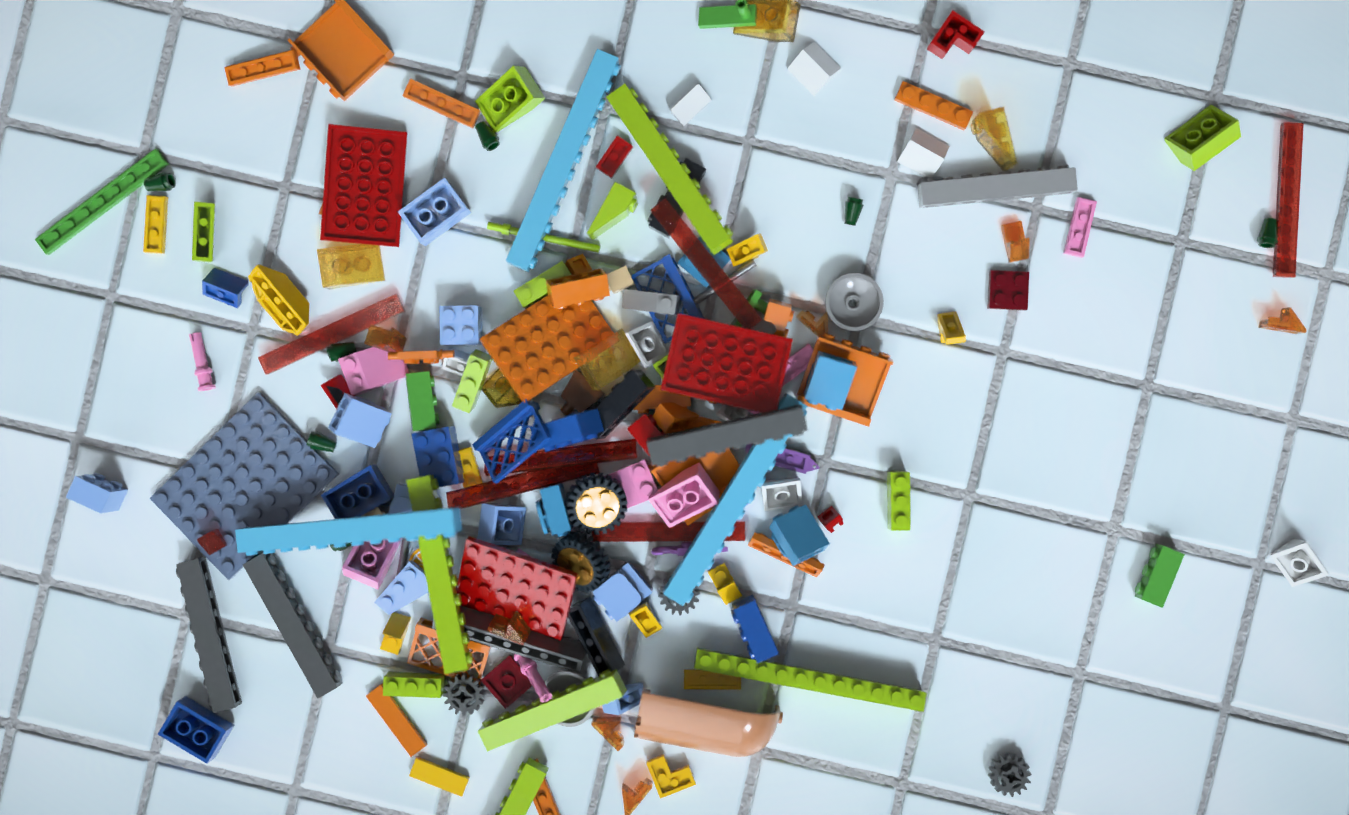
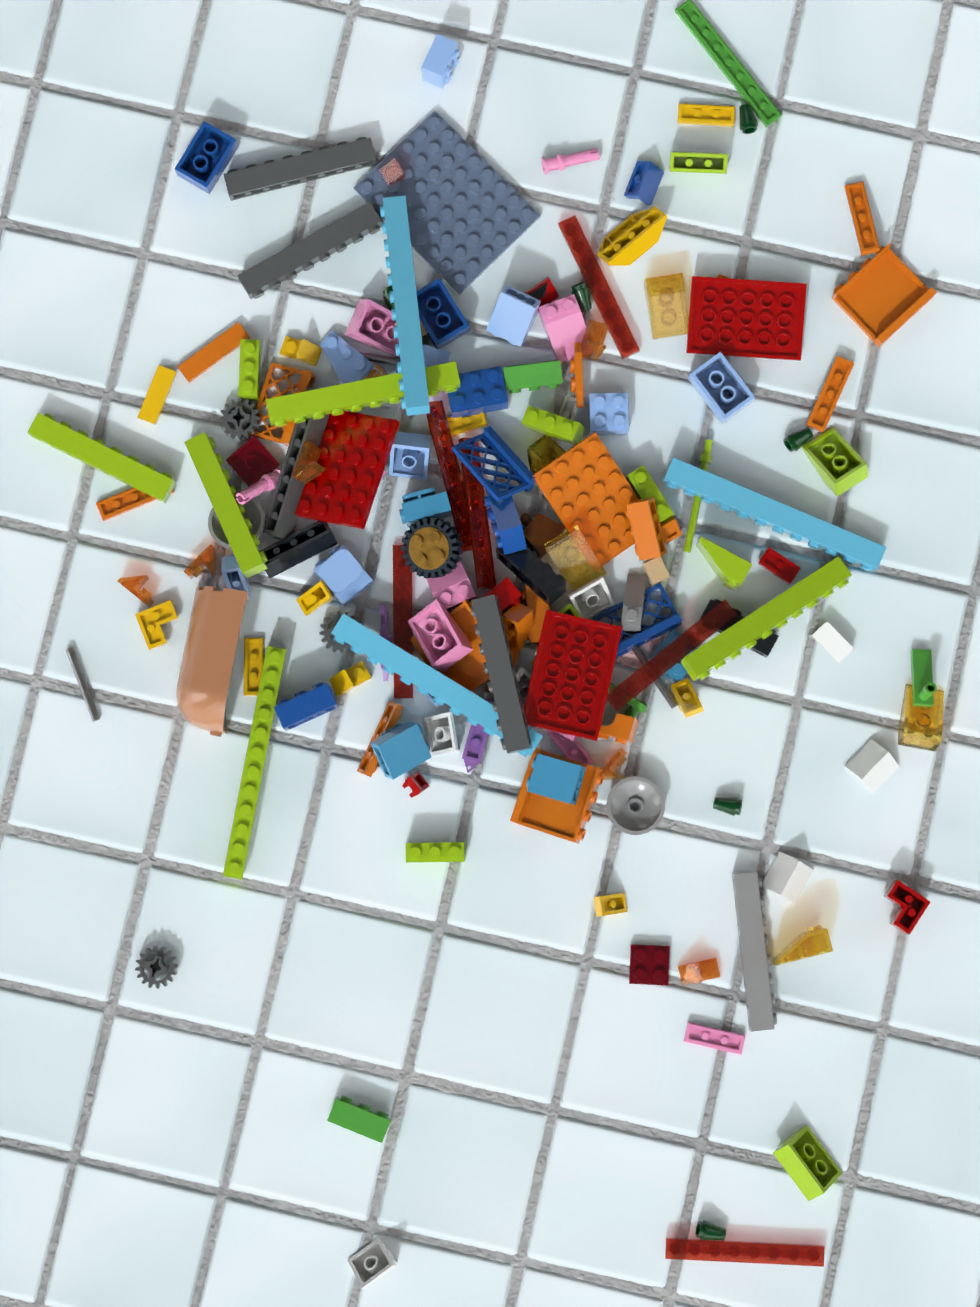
camera: 90 degrees right, 5 degrees down
(321, 442) = (491, 276): dark green cone -> none
(583, 557) = (377, 537): black wheel -> none
(933, 105) = (836, 887): orange plate -> none
(1286, 323) = (616, 1252): clear orange slope -> none

